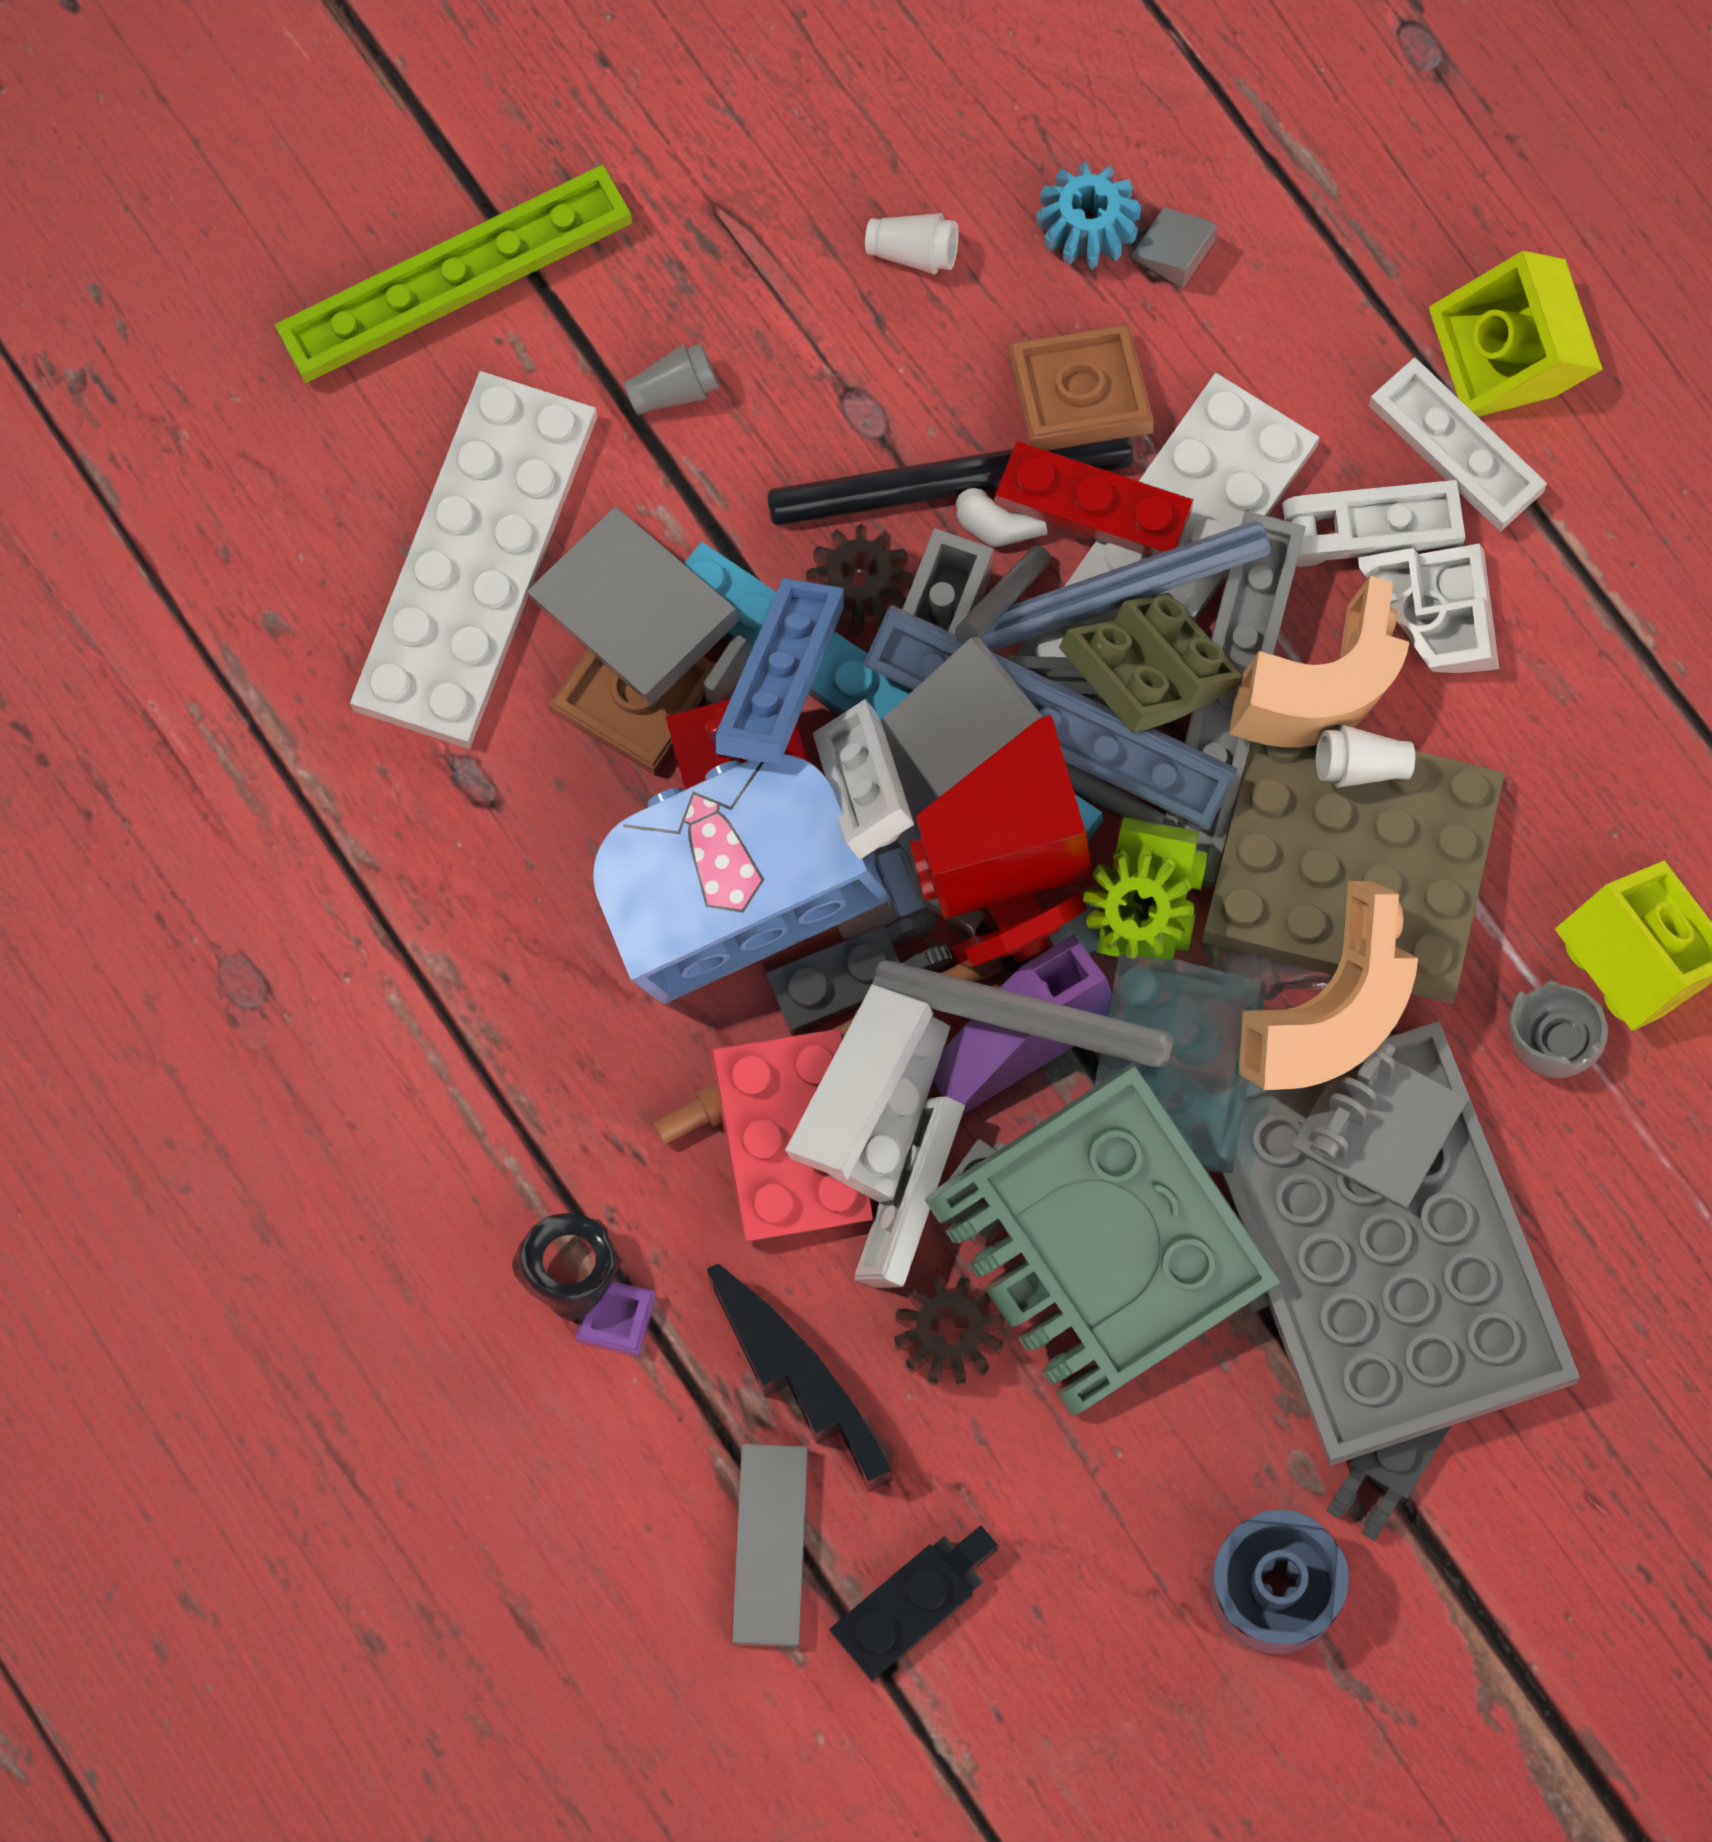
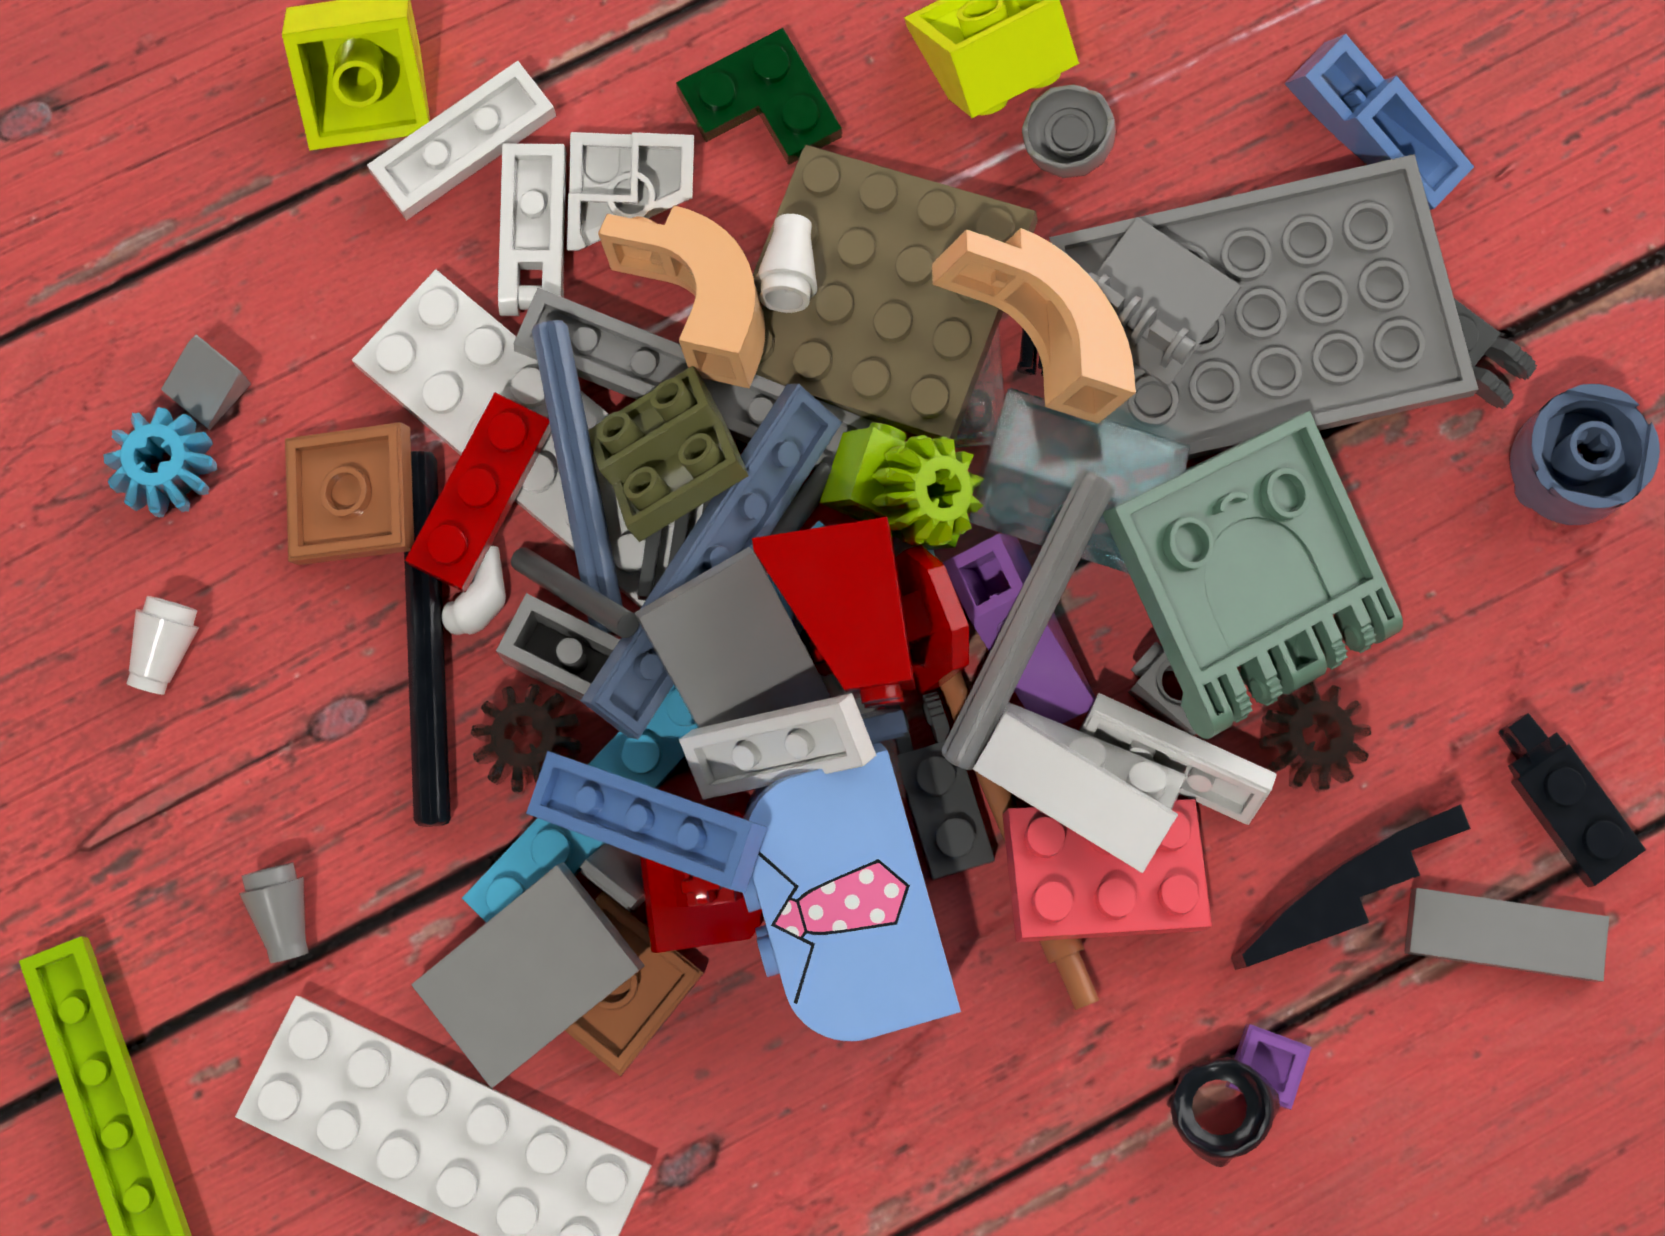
camera: 90 degrees left, 5 degrees up
(1568, 730) = (765, 82): none -> dark green plate
(1621, 1356) = (1377, 115): none -> medium blue slope

